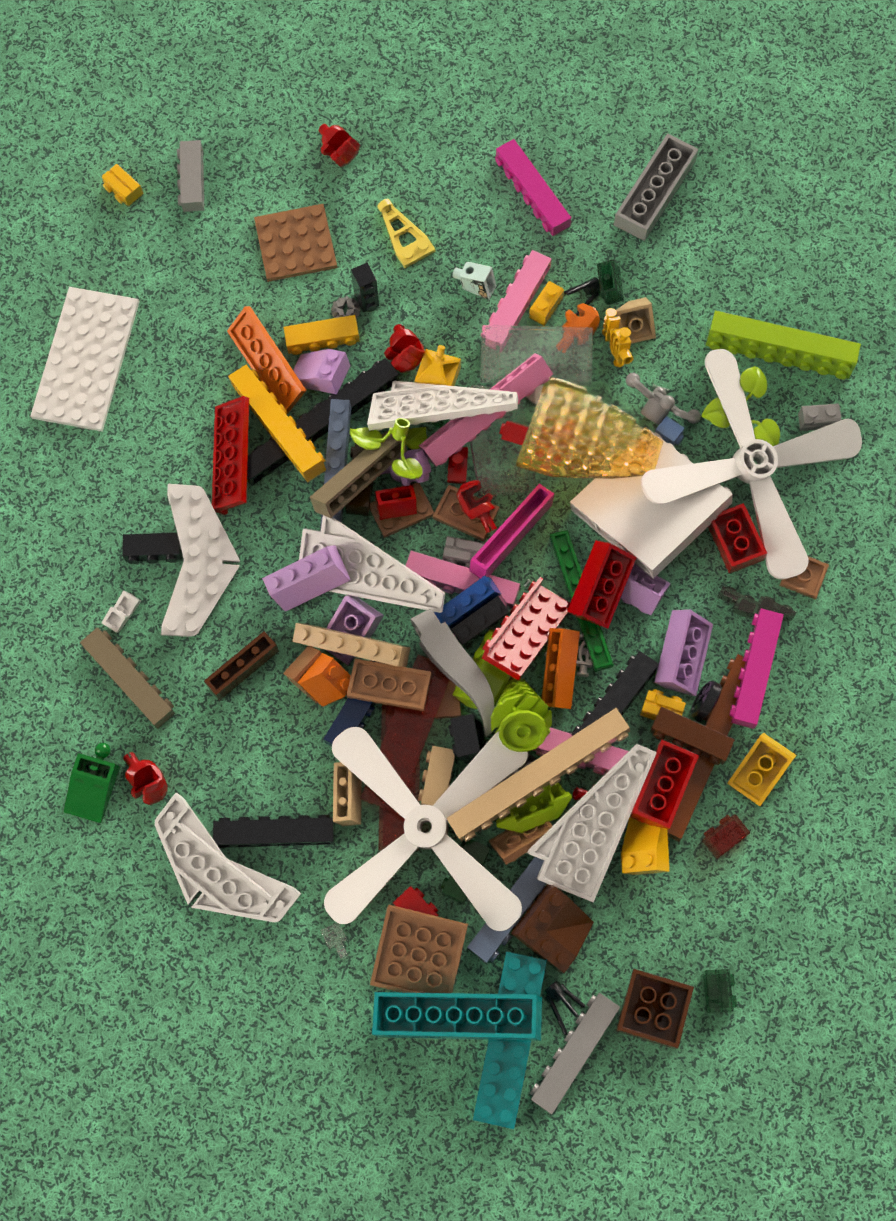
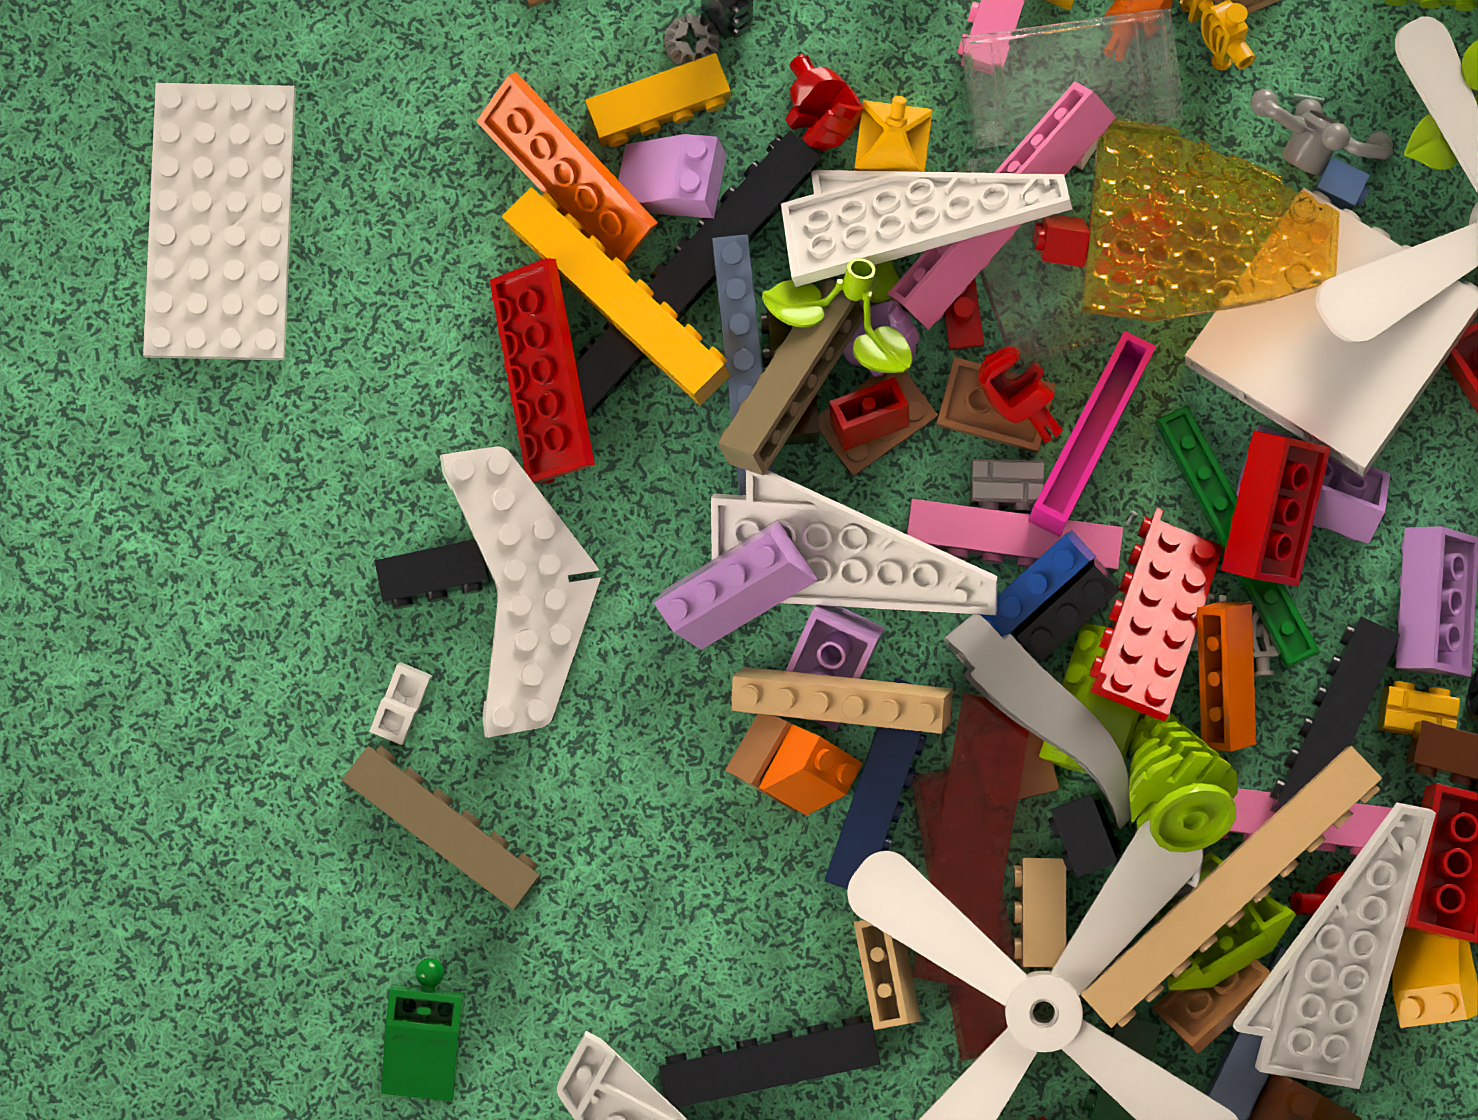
camera: 15 degrees left, 10 degrees up
(145, 779) = (509, 1010): red piece -> none
(241, 665) = (647, 769): reddish brown brick -> none
(389, 684) = (926, 764): medium nougat plate -> none

